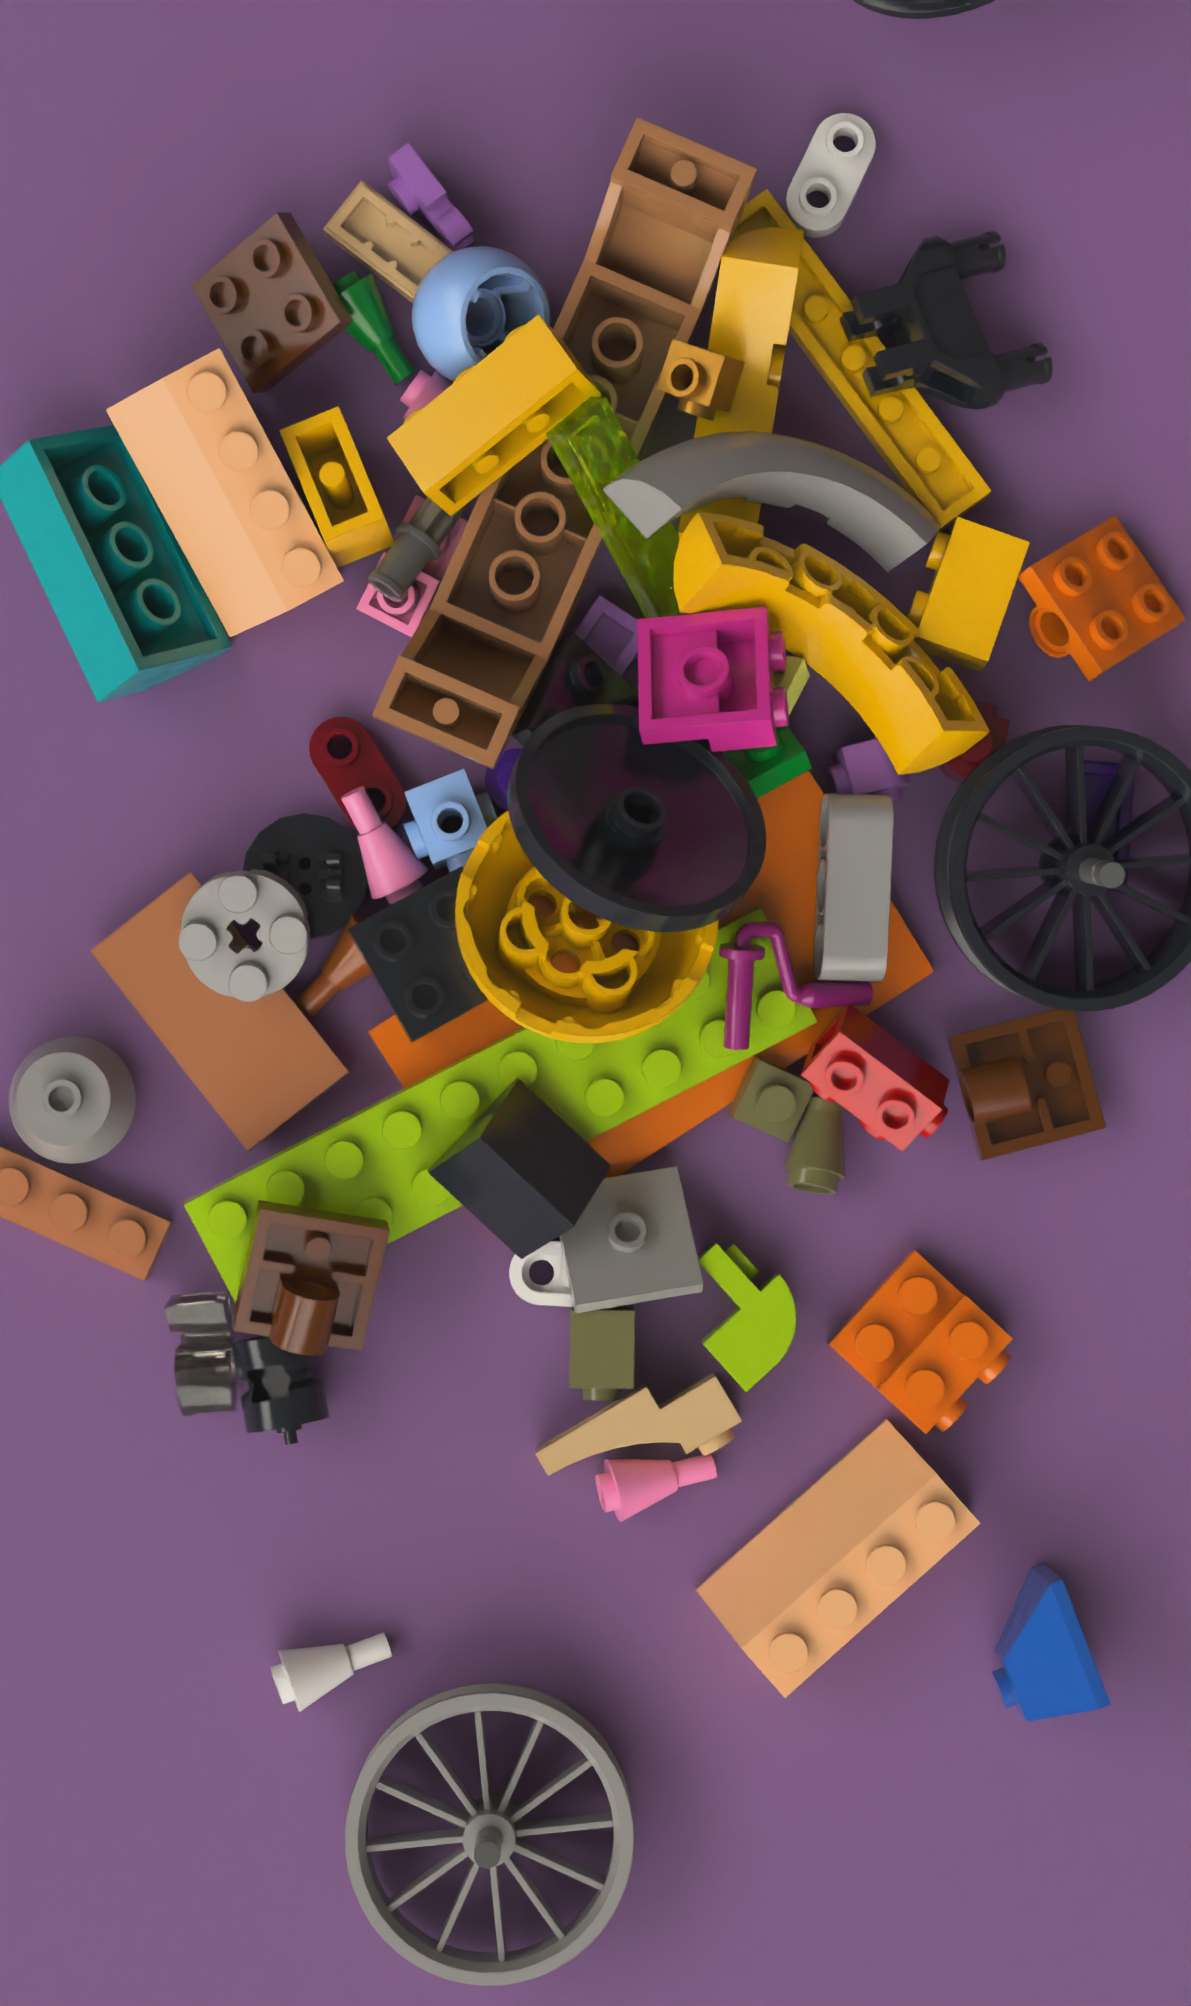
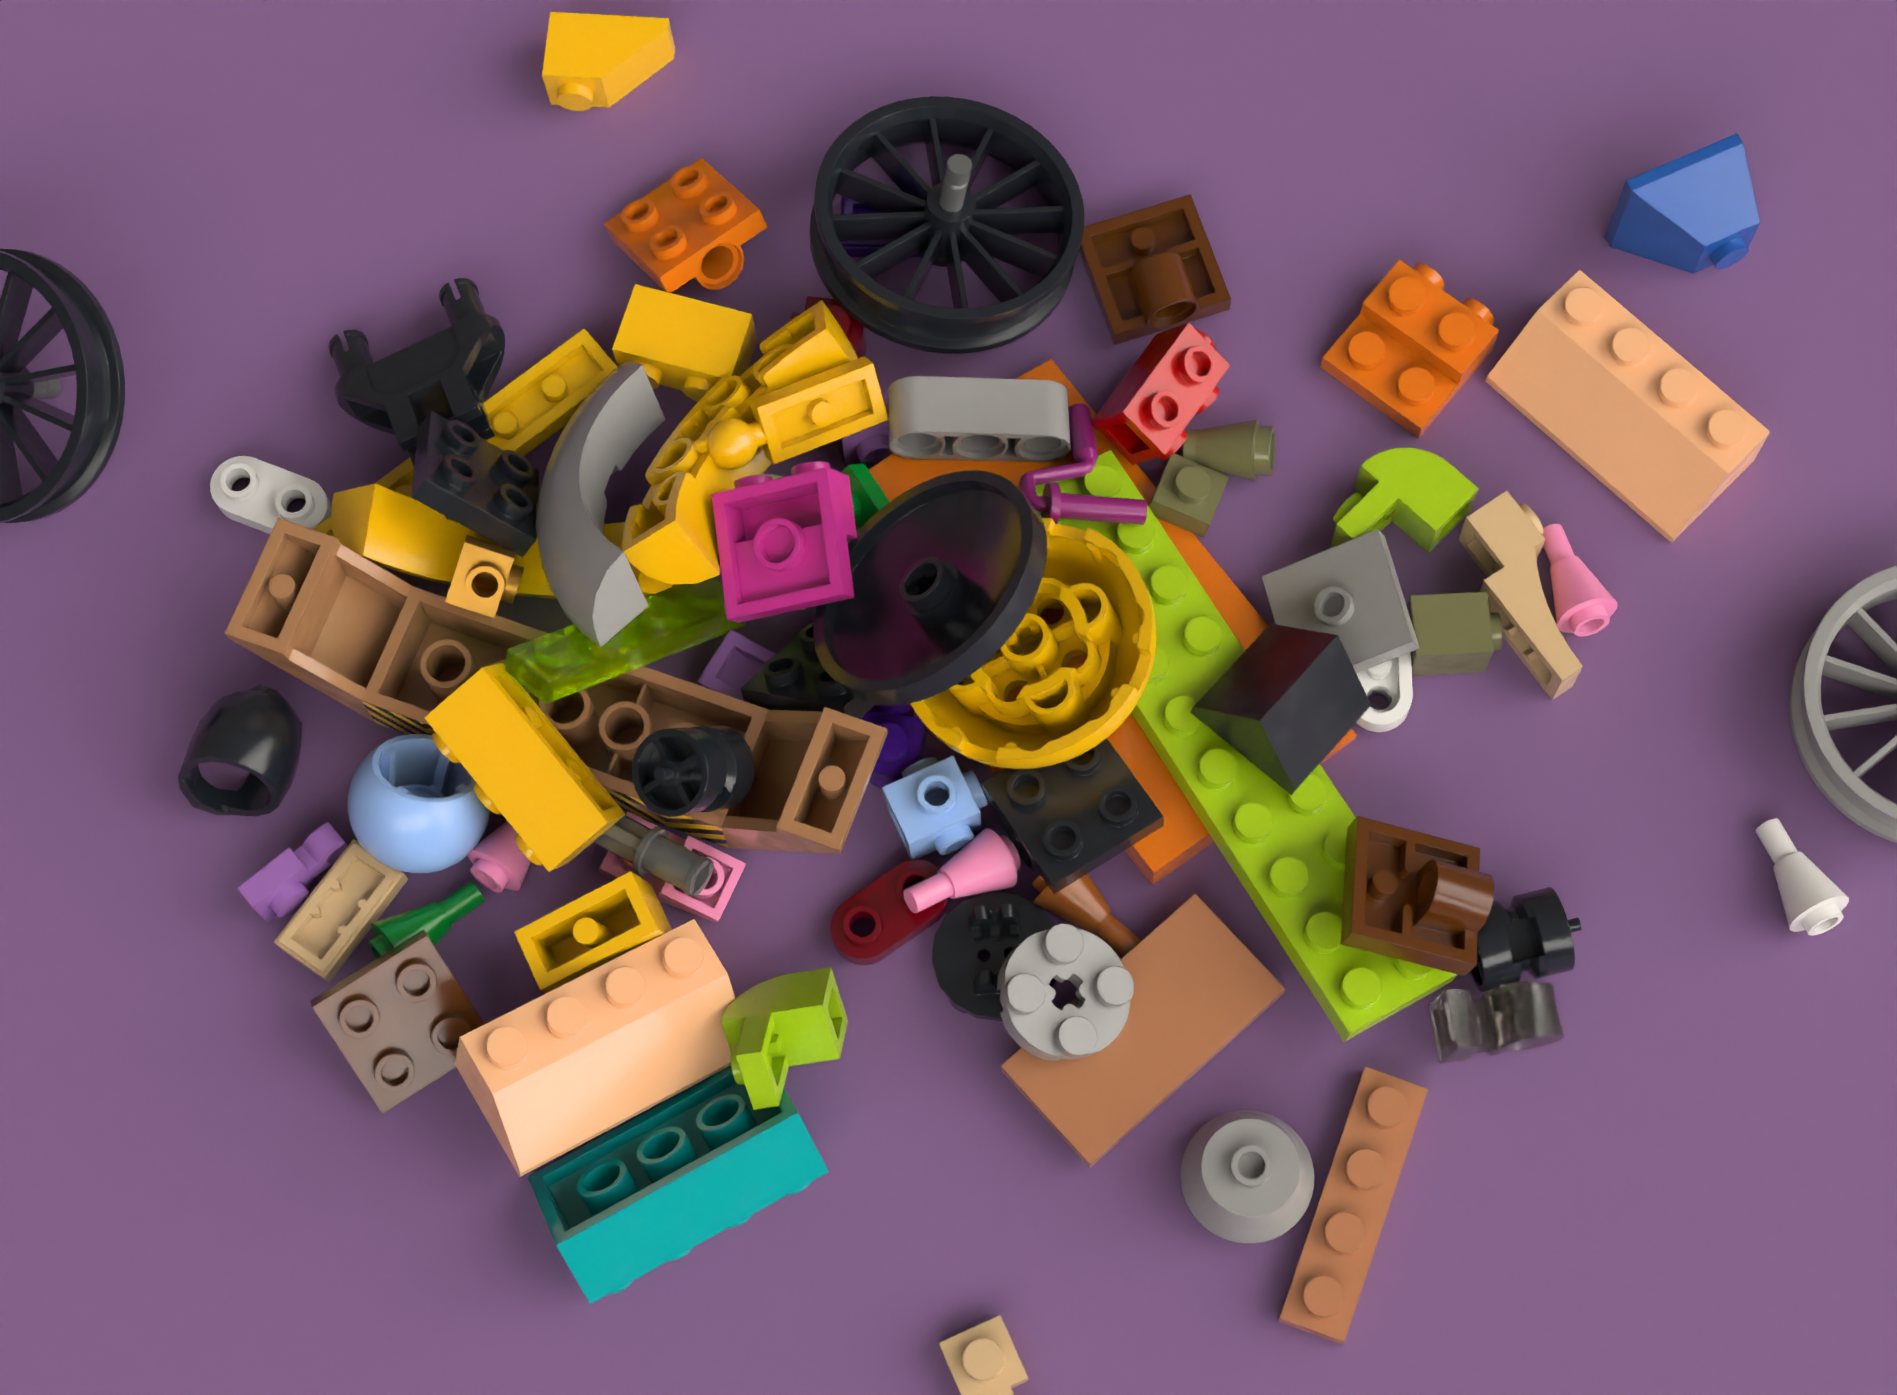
camera: 85 degrees left, 15 degrees down
(241, 661) = (781, 1026): none -> lime brick
(467, 576) = (692, 770): none -> black wheel
(552, 148) = (251, 732): none -> black piece
(801, 371) = (476, 483): none -> black plate
(855, 703) = (802, 416): none -> yellow plate

